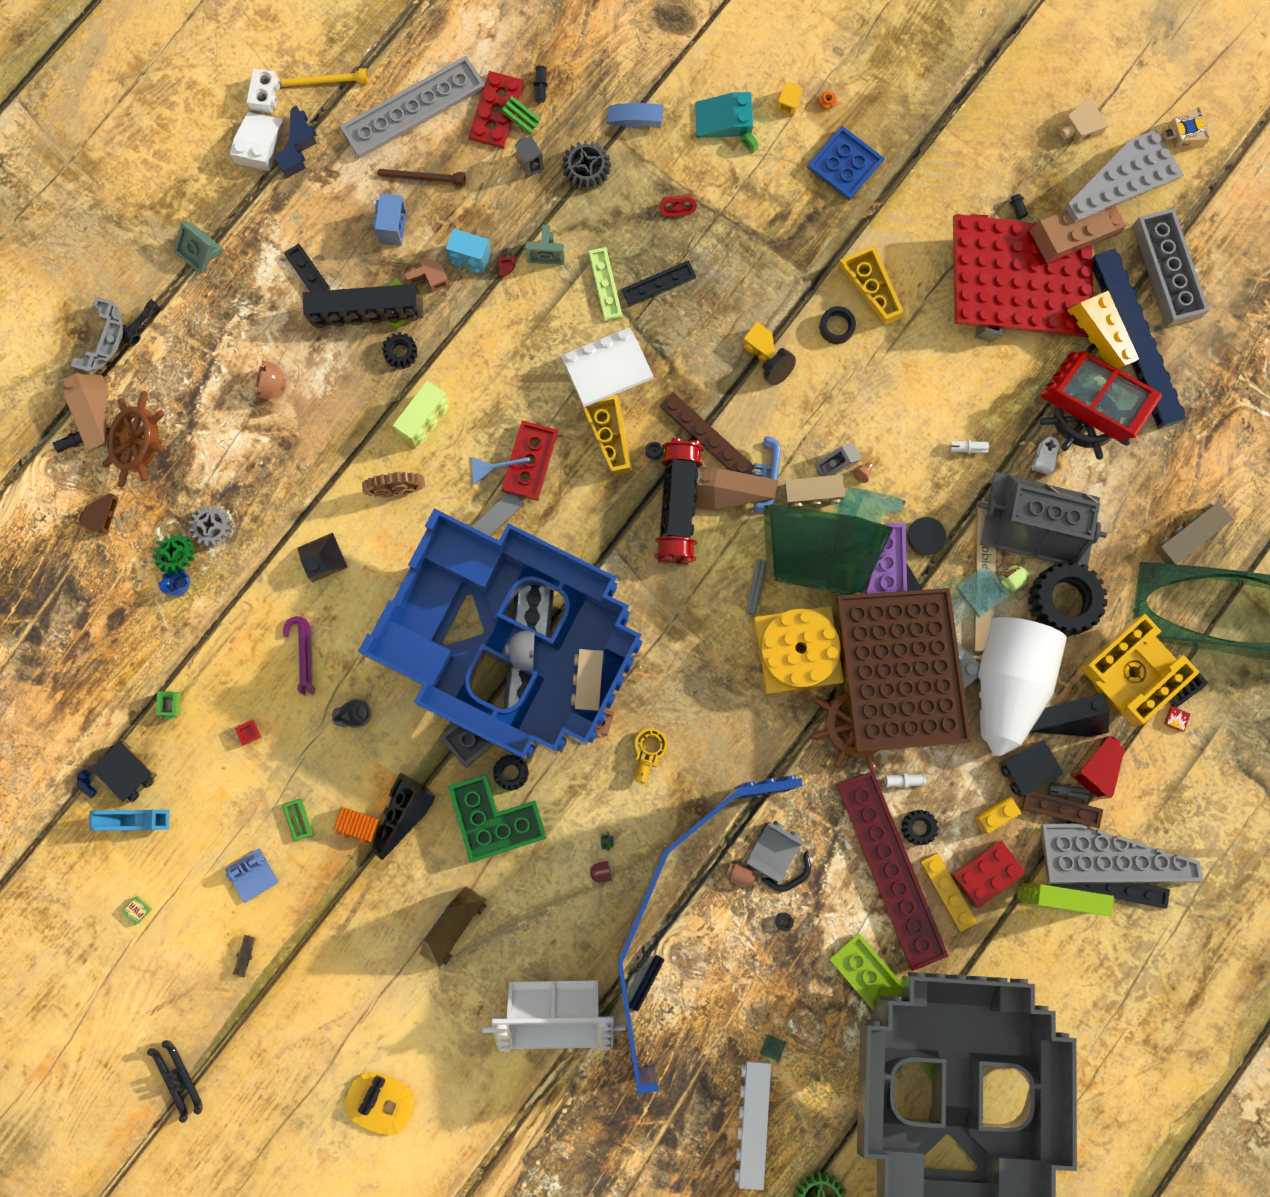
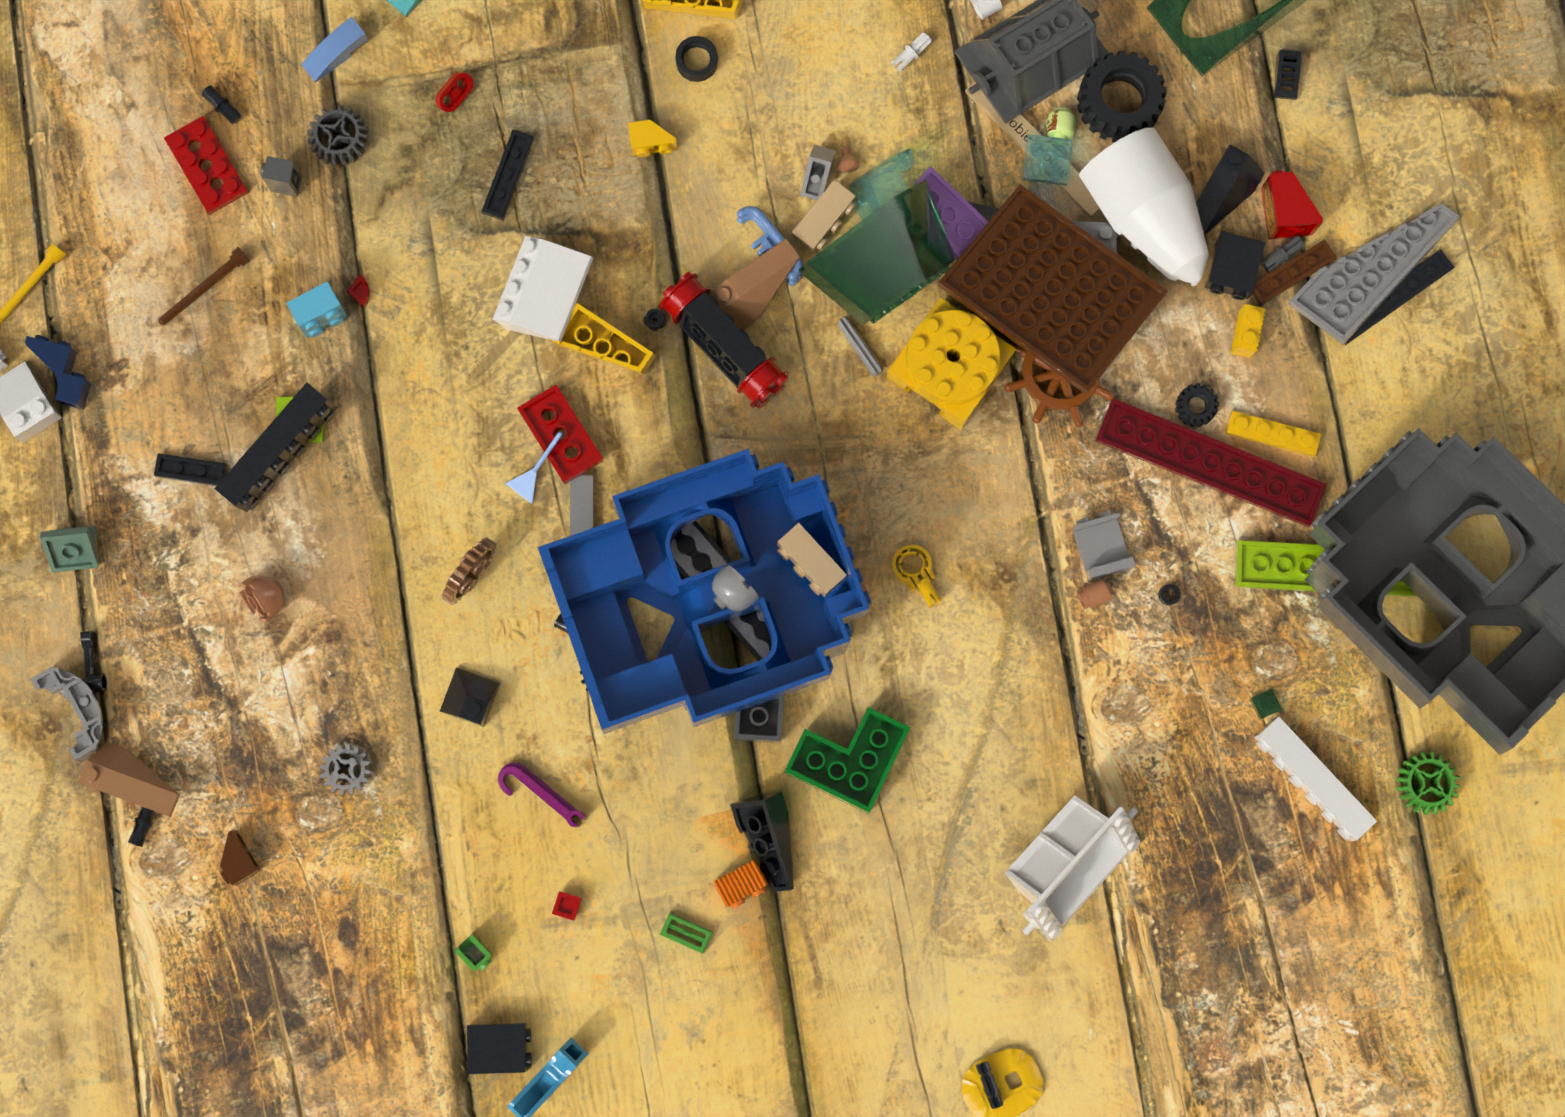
camera: 45 degrees left, 0 degrees up
(83, 783) = (472, 1095): clear blue arm -> none
(135, 440) = (201, 764): dark orange piece -> none
(174, 553) = (332, 832): green gear -> none
(175, 584) = (368, 848): blue hair -> none
(244, 955) = (763, 1088): clear smoke pin -> none
(251, 875) = (697, 1018): medium blue hinge -> none
(352, 714) = (638, 797): dark grey hair -> none
(390, 219) = (222, 355): medium blue brick -> none
(397, 340) = (335, 448): black tyre -> none
(412, 107) = (130, 236): light grey plate -> none
(421, 414) = (428, 489): yellowish green brick -> none
(430, 271) = (300, 361): nougat brick -> none
(451, 925) = (903, 852): dark brown wedge -> none
(500, 766) = (821, 693): black tyre -> none
(523, 113) = (234, 144): bright green tile -> none
(547, 251) = (384, 242): sand green bracket -> none
(600, 872) = (981, 711): dark red tile -> none
(605, 284) = (462, 221): yellowish green tile -> none
(606, 841) = (959, 680): clear green plate -> none
(646, 983) = (1112, 760): black axle -> none
(646, 1076) = (1051, 697): blue panel -> none
(703, 432) = (680, 262): reddish brown plate -> none
(779, 367) = (686, 142): black tile -> none
(794, 882) = (1144, 553): black animal -> none
(905, 780) = (1145, 379): white pin -> none
(926, 536) = (954, 161): black tile -> none
(987, 874) = (1289, 386): red brick -> none
(1065, 899) = (1370, 340): lime window -> none
(1156, 671) = (1253, 84): yellow piece -> none
(1177, 719) = (1306, 106): tile -> none

